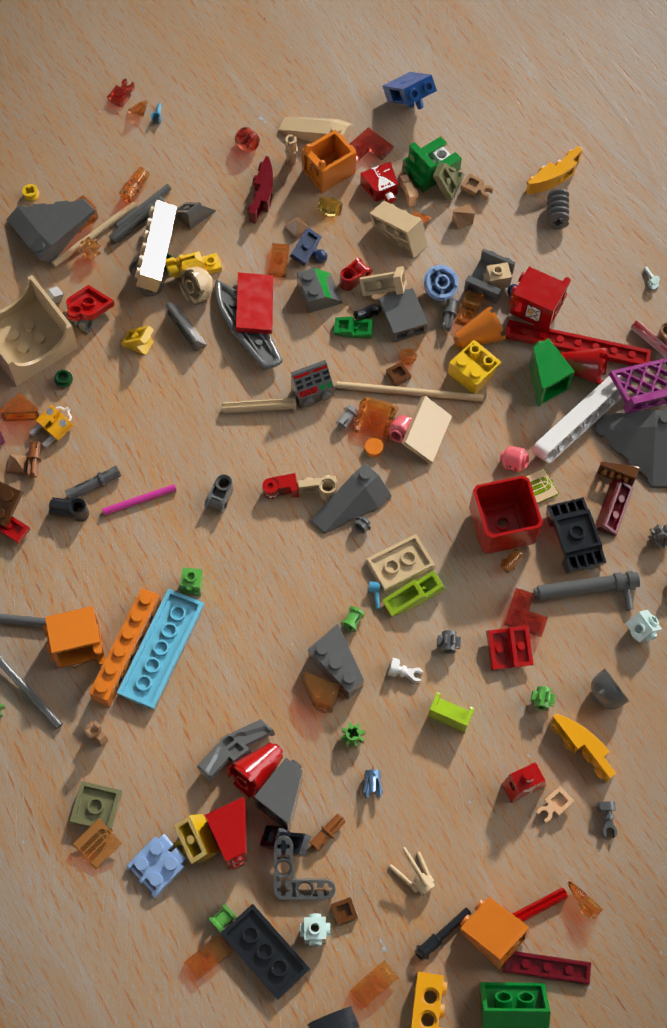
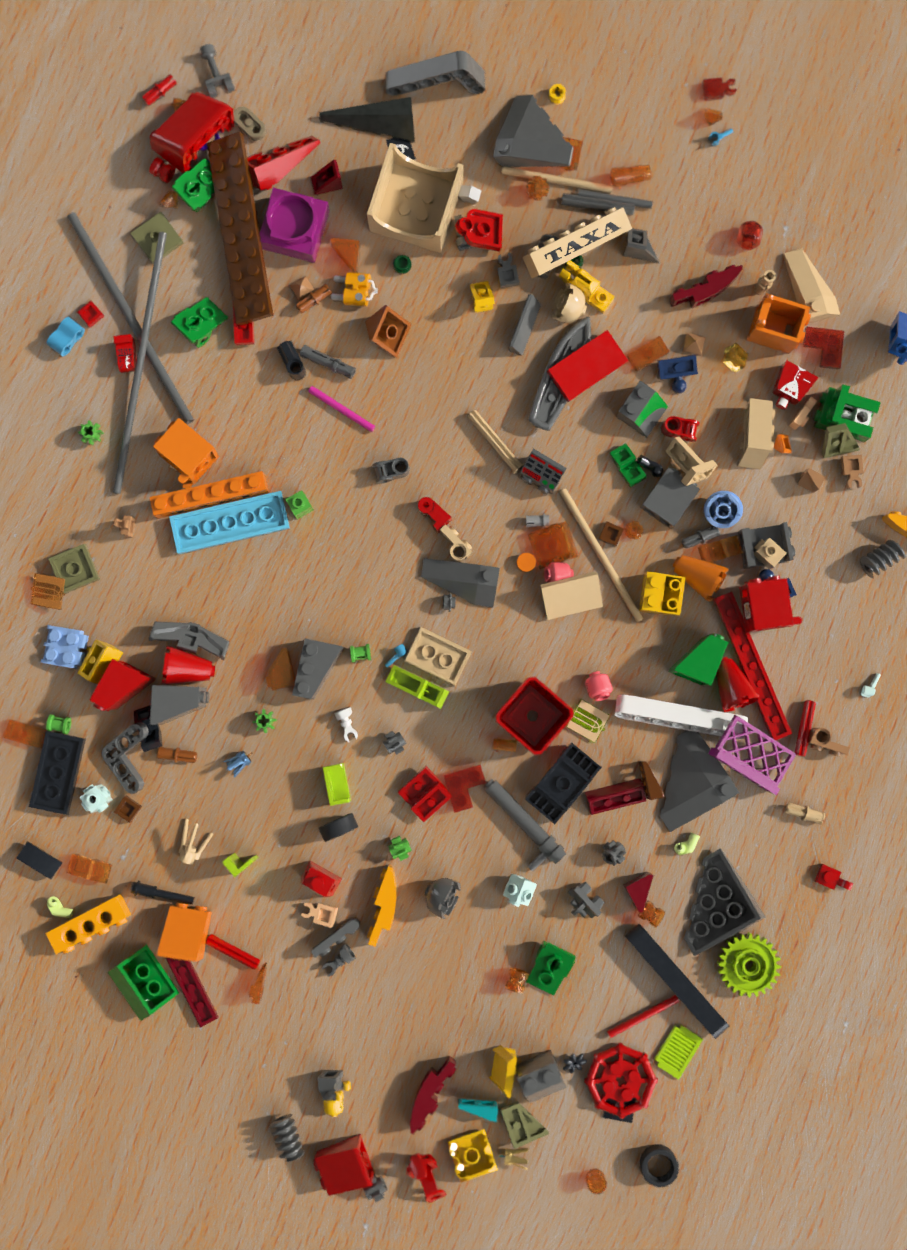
camera: 55 degrees right, 20 degrees up
(106, 420) = (388, 330): none -> dark orange slope
(137, 311) = (507, 274): none -> dark grey plate
(464, 842) = (235, 865): none -> lime panel
(490, 734) = (338, 827): none -> black tyre
(585, 804) = (336, 937): none -> dark grey hinge

